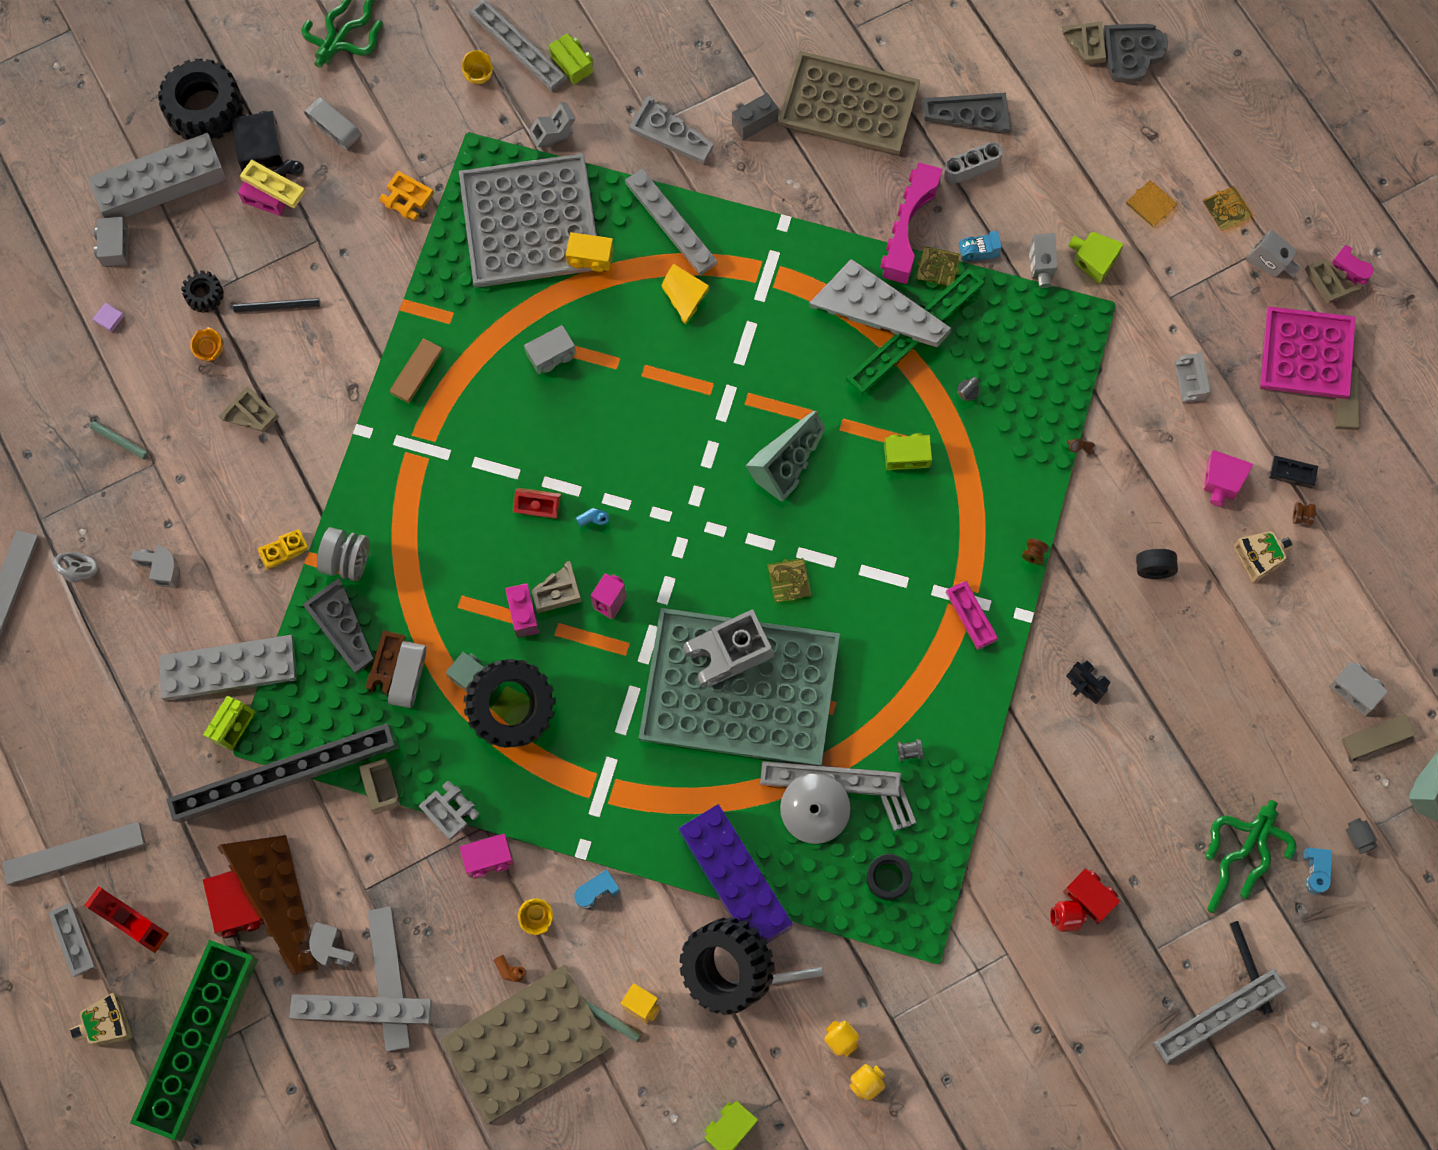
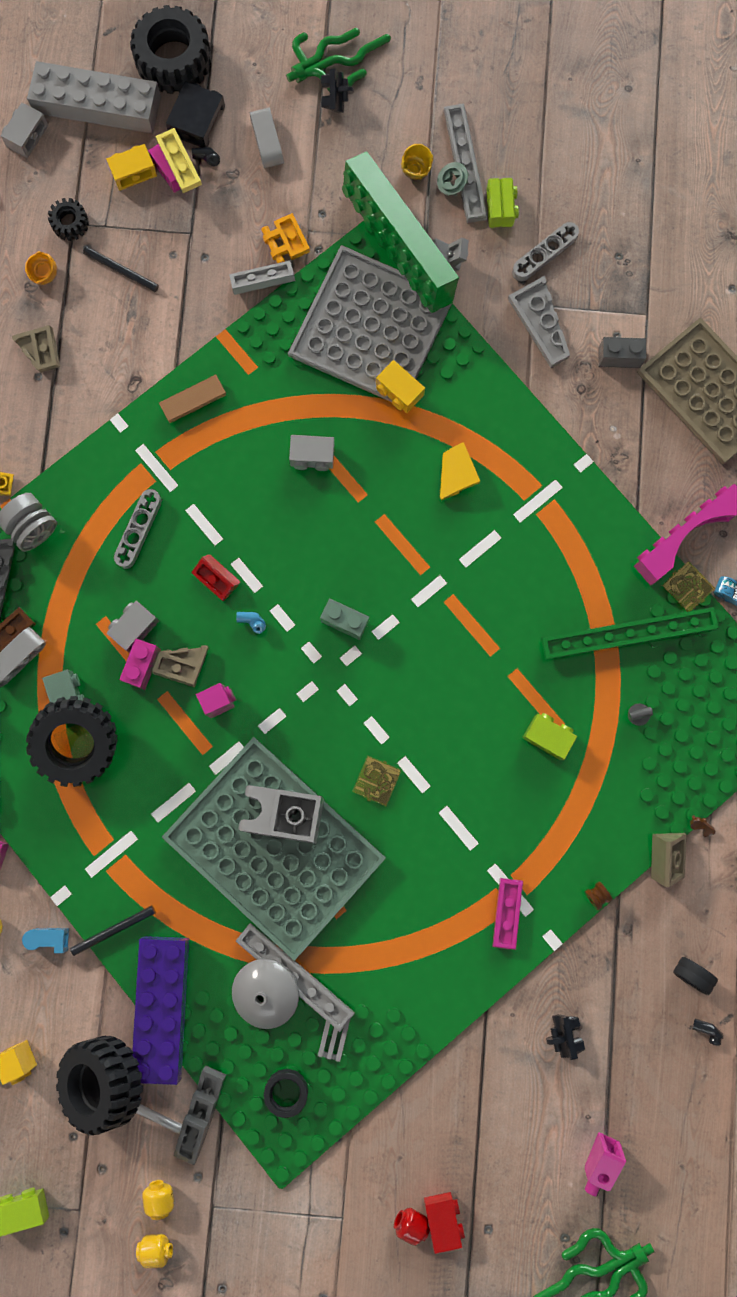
camera: 30 degrees right, 10 degrees up
(230, 215) = (131, 167): none -> yellow brick
(372, 59) = (338, 91): none -> black hips
(407, 237) = (262, 277): none -> light grey plate
(442, 504) = (134, 527): none -> light grey beam
(494, 578) = (132, 625): none -> light grey brick
(504, 130) = (399, 232): none -> green brick
(509, 64) = (446, 175): none -> sand green gear
(633, 75) = (543, 249): none -> light grey beam
(649, 844) = (111, 931): none -> black bar
(671, 222) = (488, 402): light grey plate -> none
(672, 465) = (344, 619): none -> sand green brick
(781, 461) = (438, 674): sand green wedge -> none
(829, 946) = (199, 1115): none -> dark grey slope
(874, 303) = (609, 584): light grey wing -> none
(910, 750) = (376, 997): dark grey bush -> none
(1070, 486) = (668, 858): none -> dark tan slope
(1190, 752) = (603, 1164): none -> dark pink torso
(1200, 601) = (709, 1029): none -> black arm

